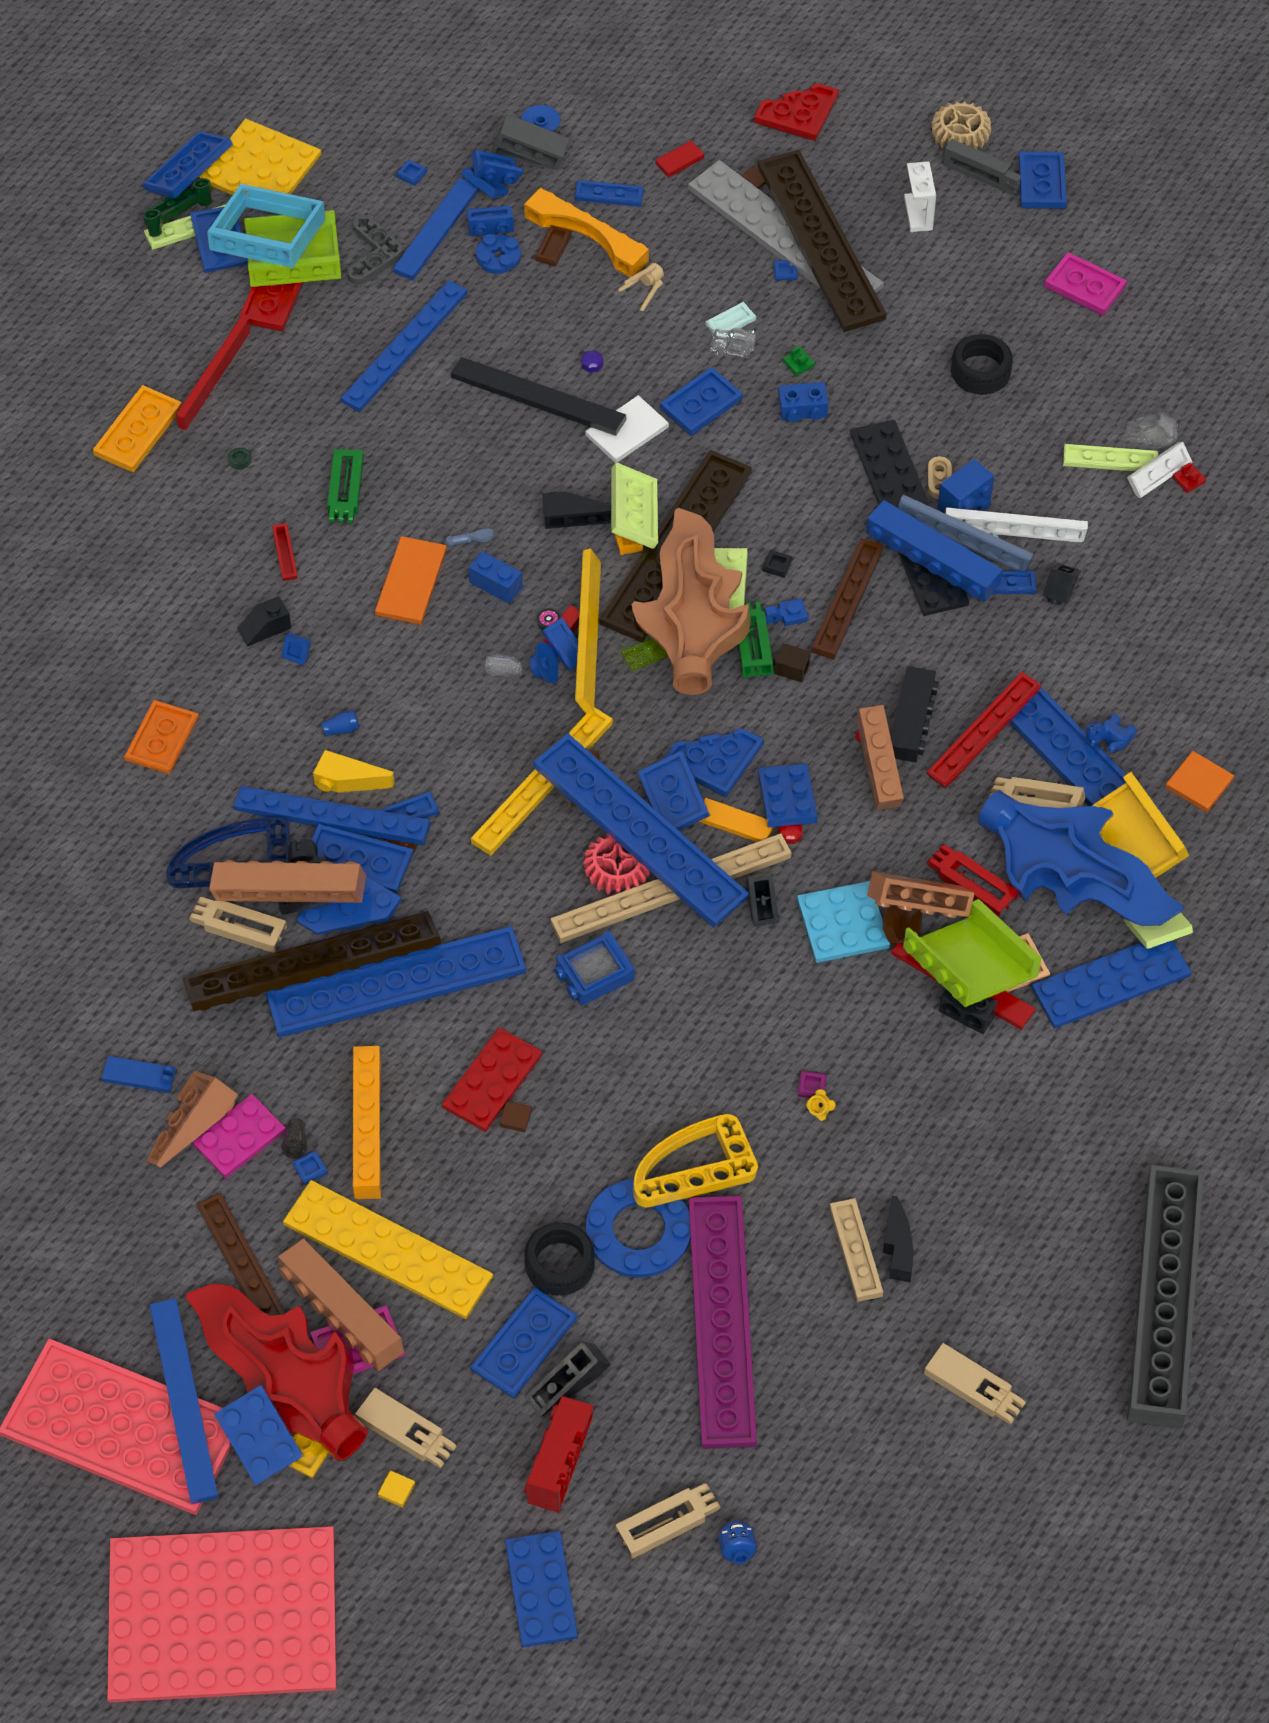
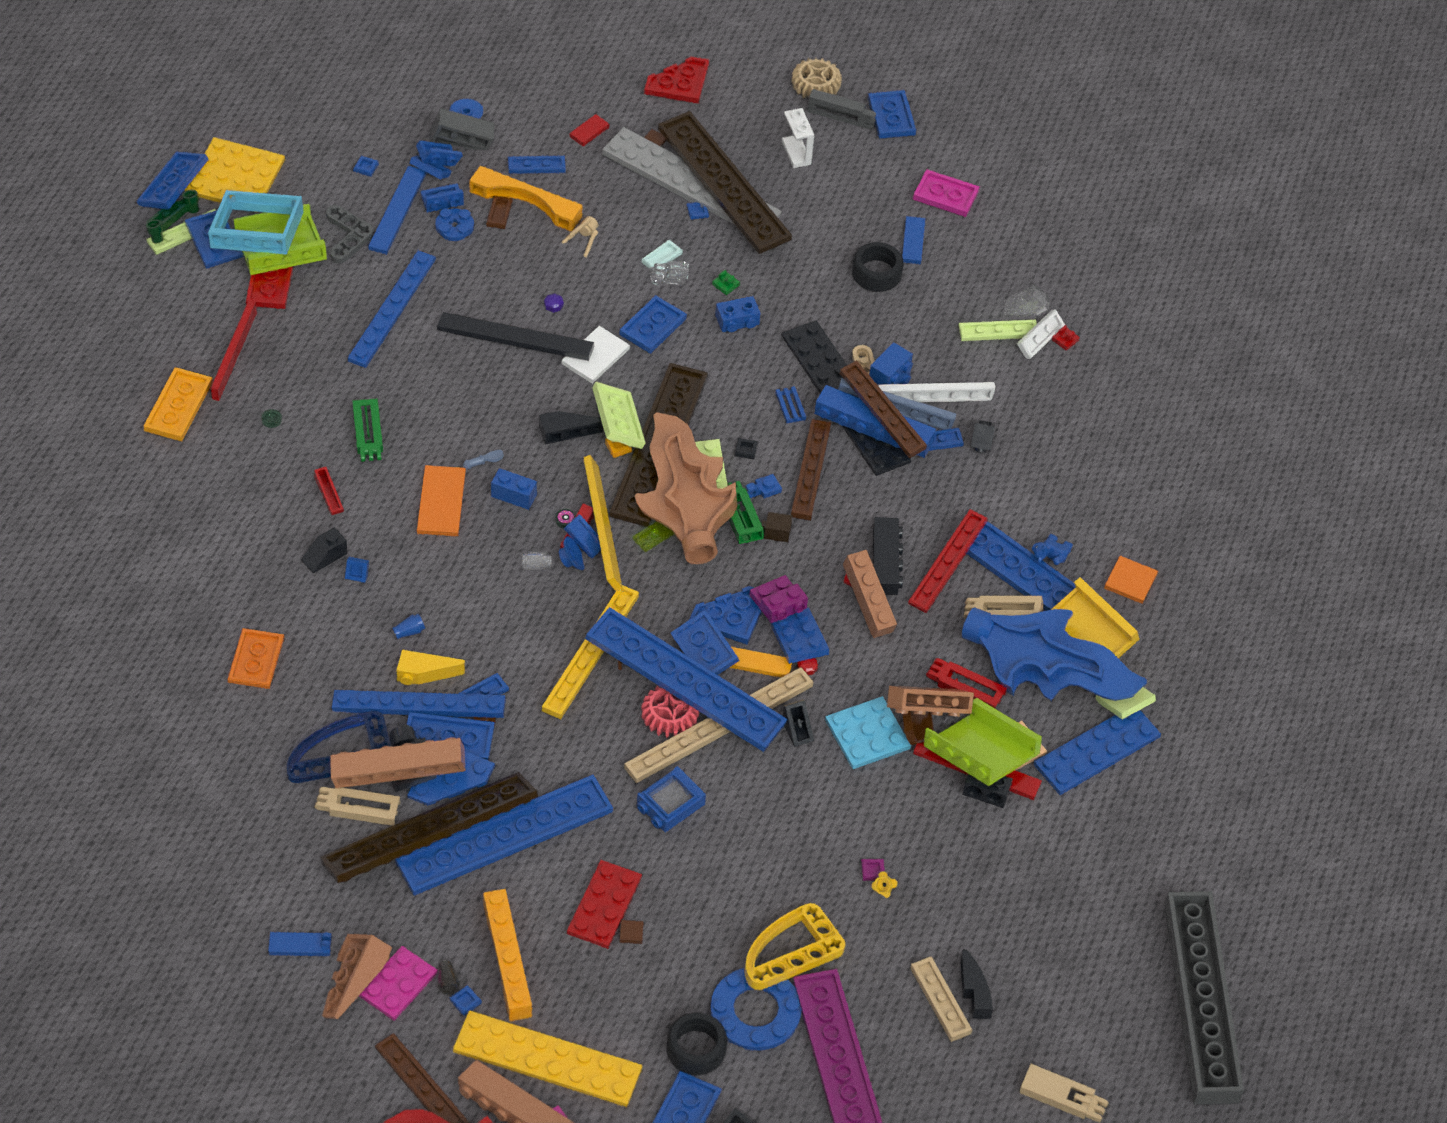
camera: 15 degrees left, 5 degrees down
(772, 748) = (779, 598): none -> magenta plate
(840, 503) = (786, 392): none -> blue tile
(943, 538) = (883, 409): none -> reddish brown plate
(1033, 336) = (913, 240): none -> blue tile

